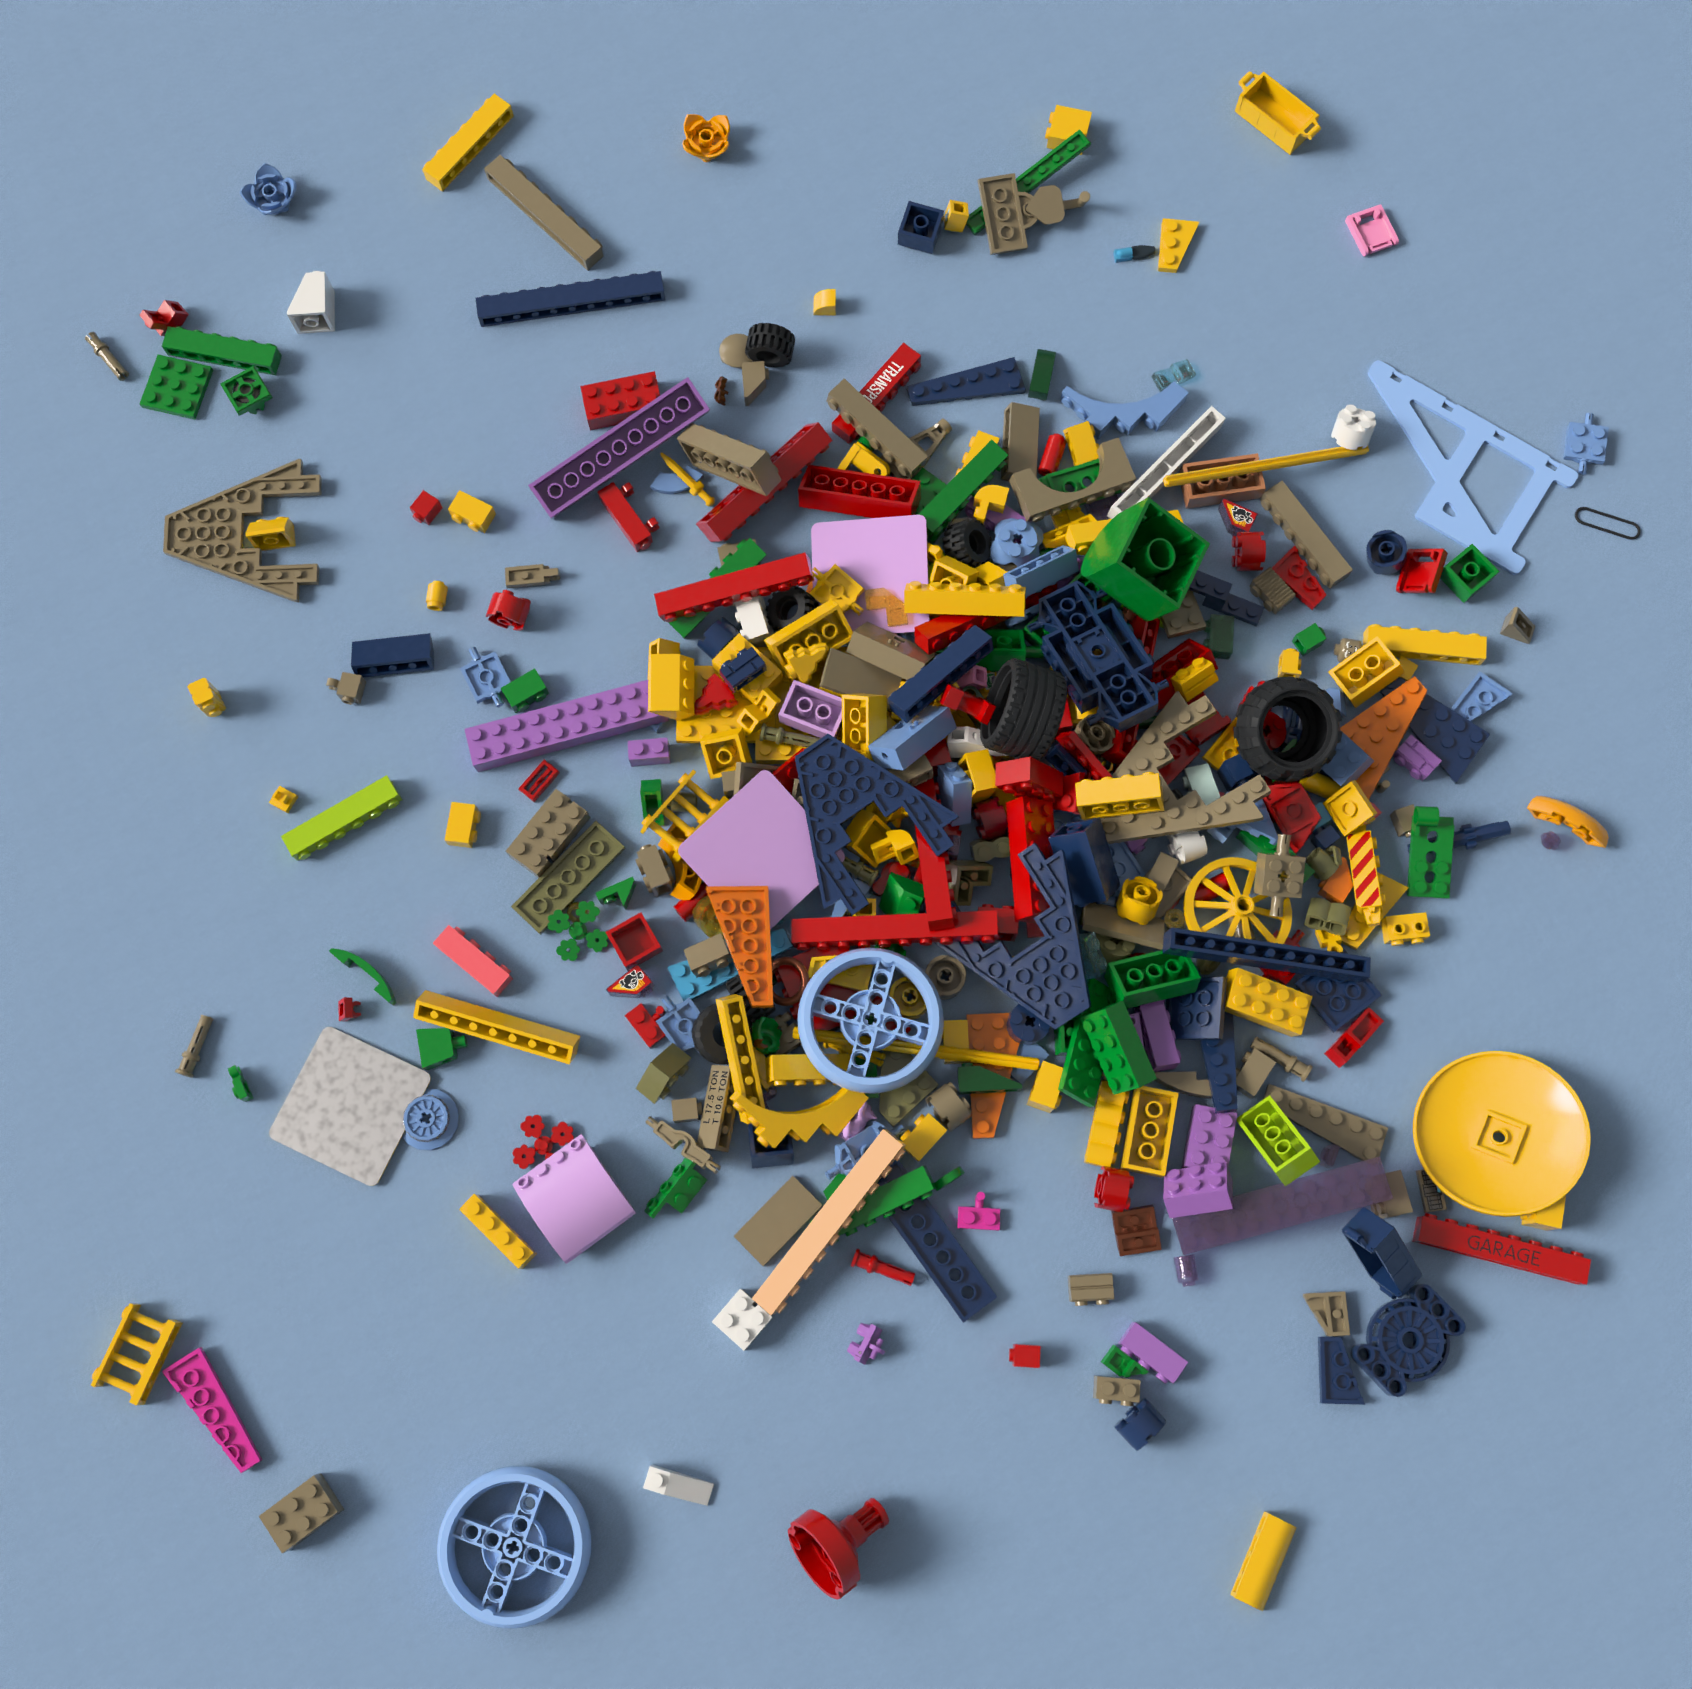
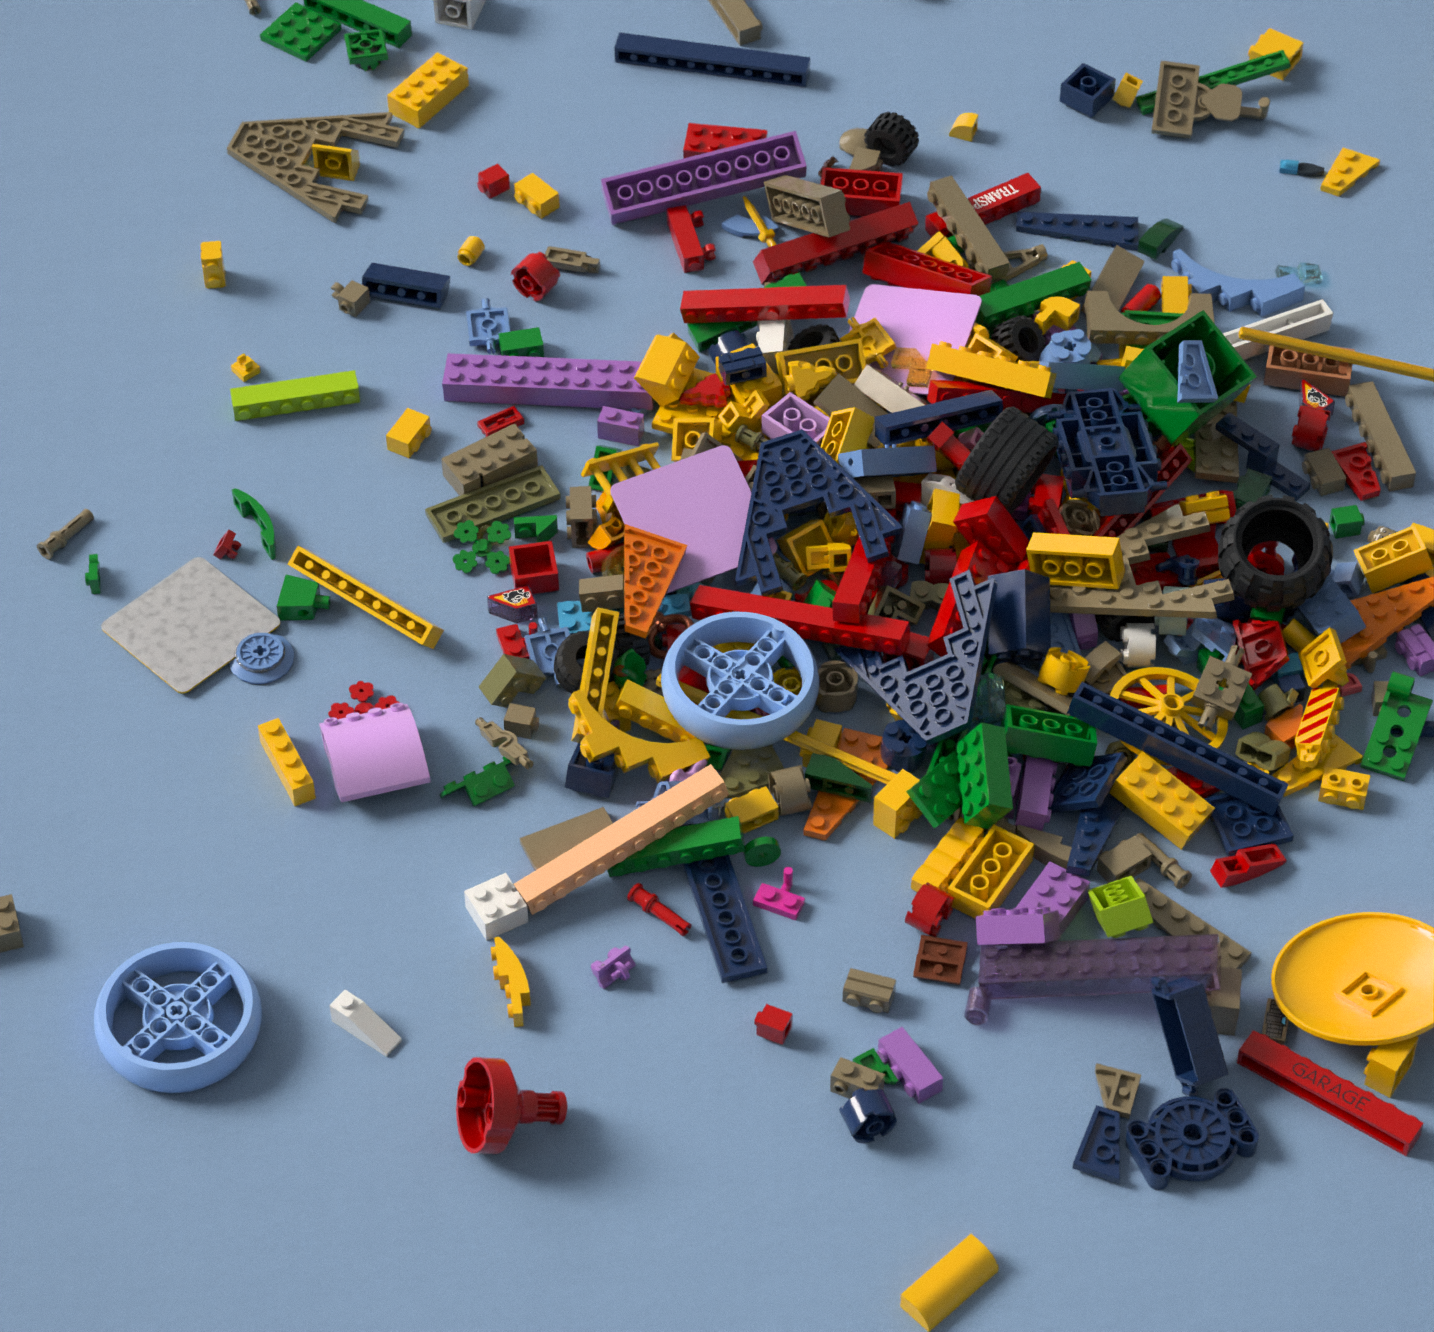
camera: 20 degrees right, 25 degrees down
(324, 421) = (428, 90): none -> yellow brick
(472, 960) = (367, 541): coral brick -> none
(718, 1111) = (551, 730): dark tan brick -> none
(763, 413) = (865, 190): none -> red brick
(780, 1383) = (512, 979): none -> yellow slope
(1164, 571) = (1194, 374): none -> medium blue wing
(1194, 745) = (1183, 566): none -> dark blue piece

